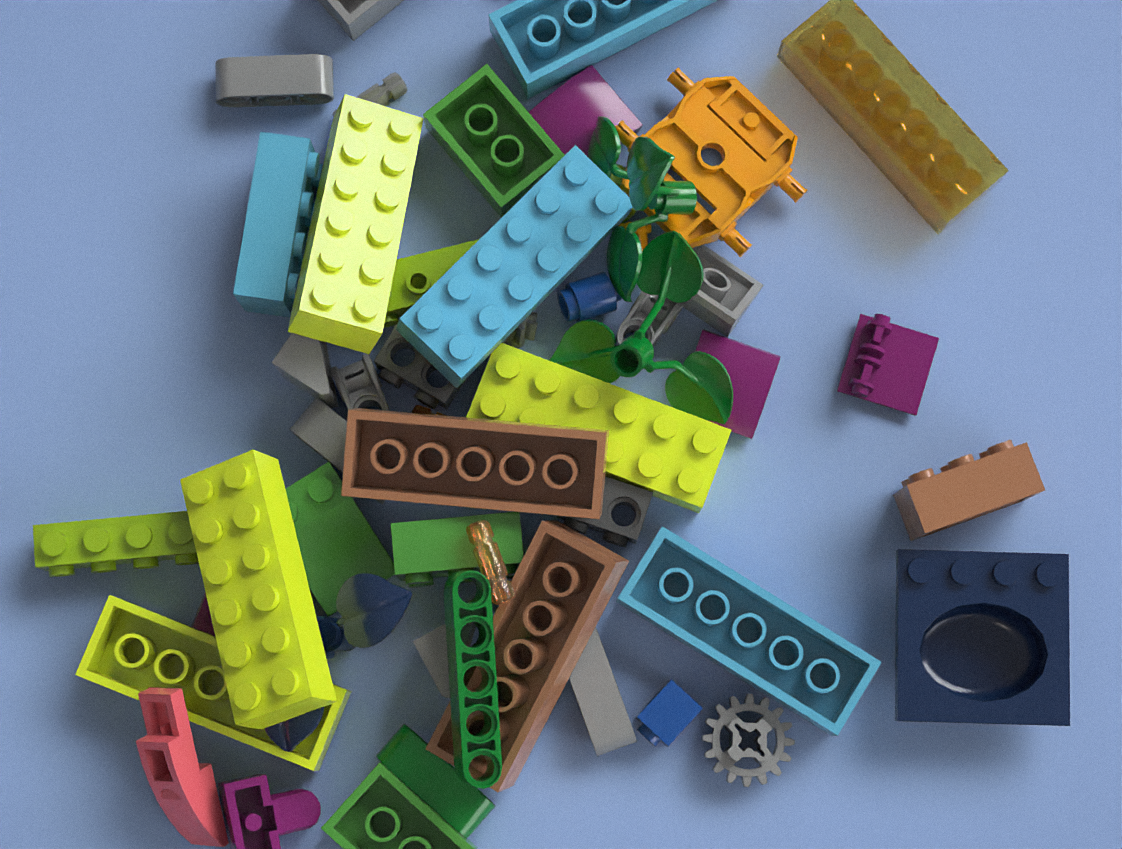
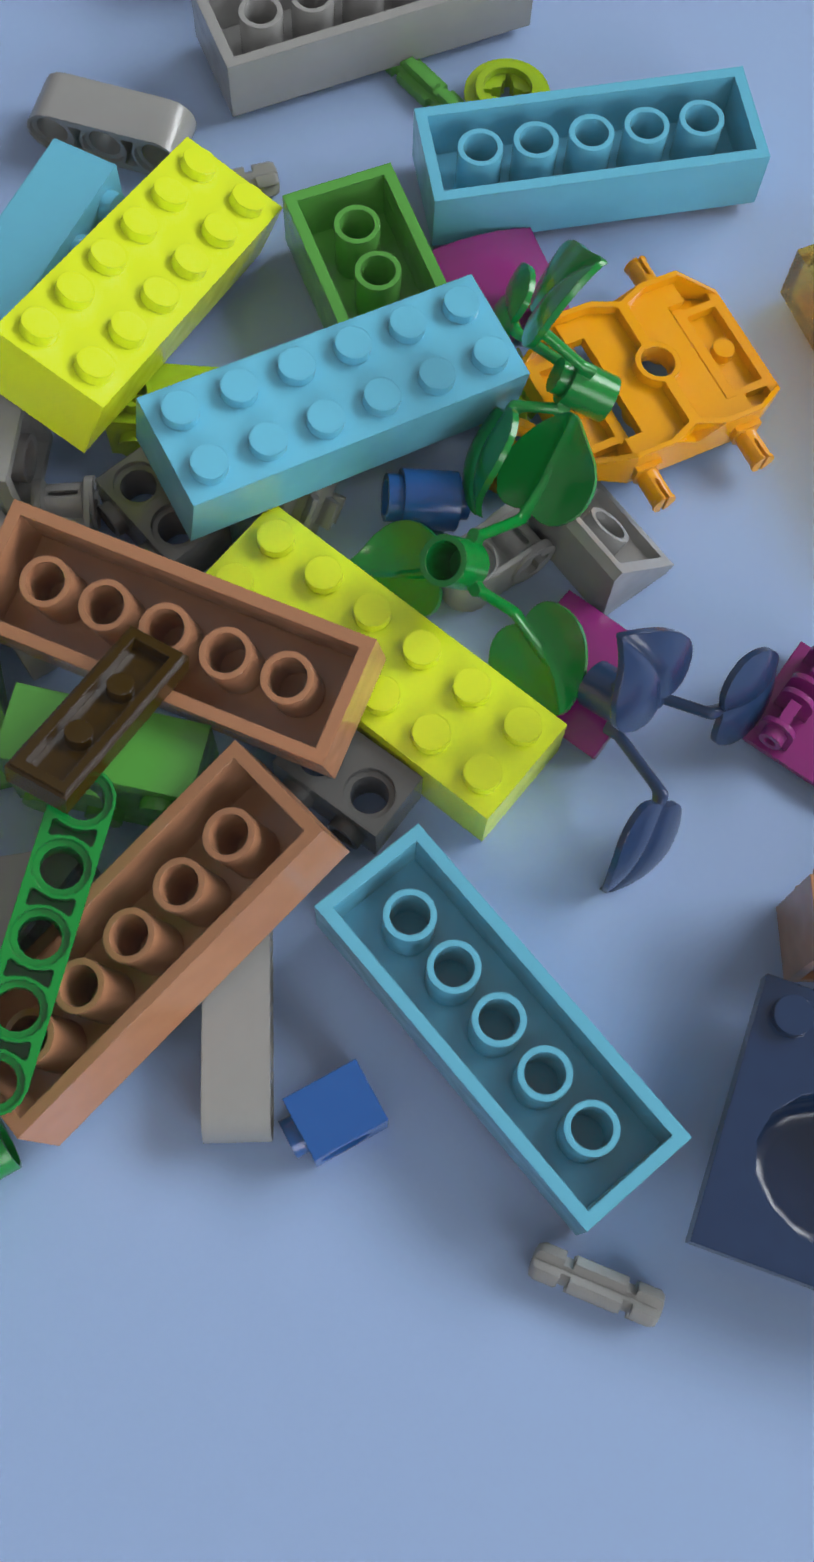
camera: 15 degrees right, 10 degrees down
(461, 539) = (97, 719): none -> dark brown tile
(490, 561) = (137, 787): clear orange axle -> none
(761, 726) = (470, 1182): light grey gear -> none
(770, 405) = (627, 697): none -> dark blue plant
(851, 759) = (596, 1284): none -> light grey axle

